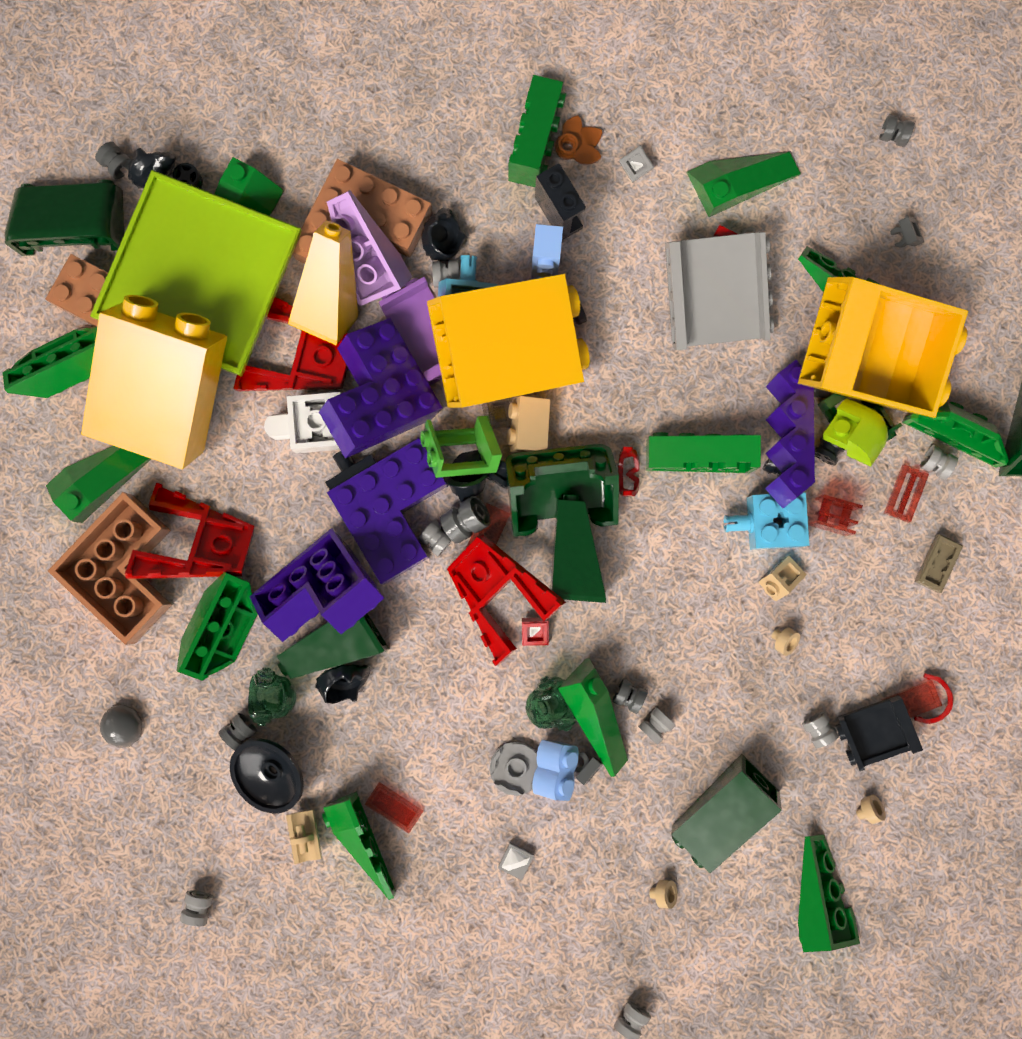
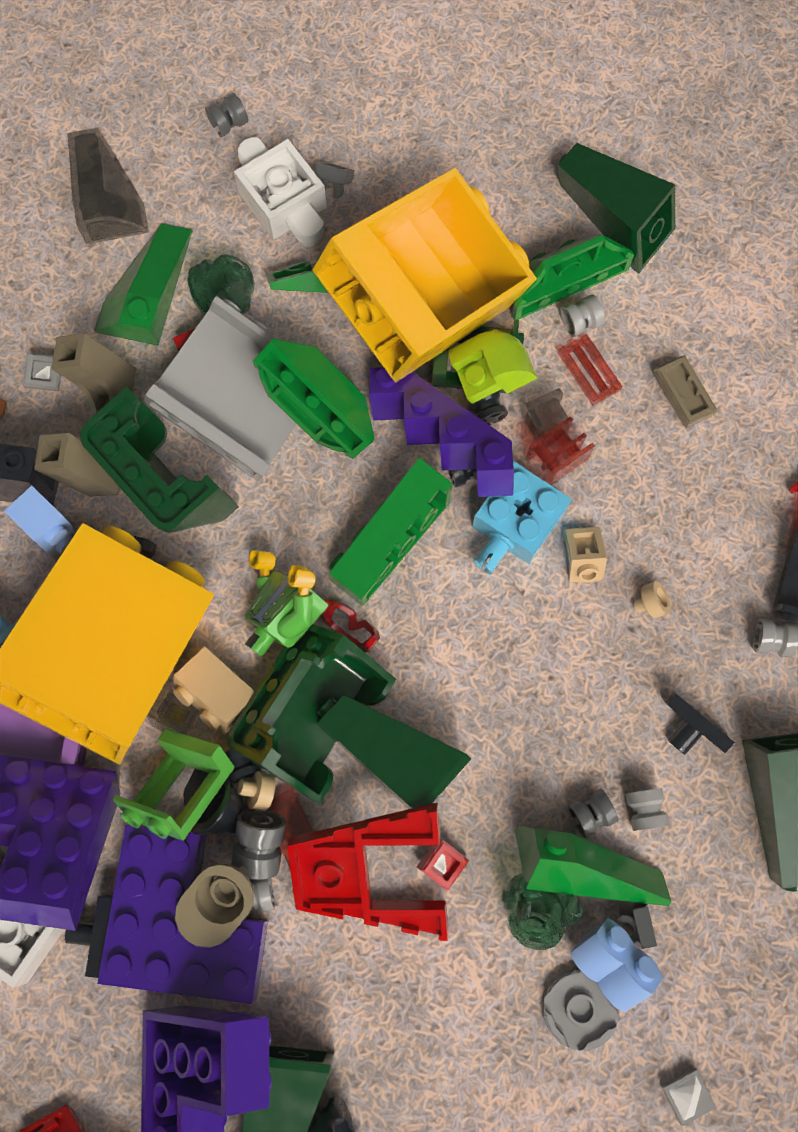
camera: 50 degrees left, 10 degrees down
(416, 522) = (214, 905): none -> dark tan piece
(494, 496) = (258, 790): none -> tan tile
(608, 425) = (283, 604): none -> bright green torso
(629, 253) = (124, 445): none -> dark green windscreen
(658, 211) = (101, 378): none -> dark tan arch
(726, 719) = (694, 728): none -> black tile
(751, 342) = (316, 396): none -> green wedge
(780, 99) = (101, 191): none -> clear smoke wedge
(780, 223) = (225, 278): none -> clear green helmet
(853, 488) = (544, 413): none -> clear smoke panel
(871, 208) = (281, 190): none -> white brick

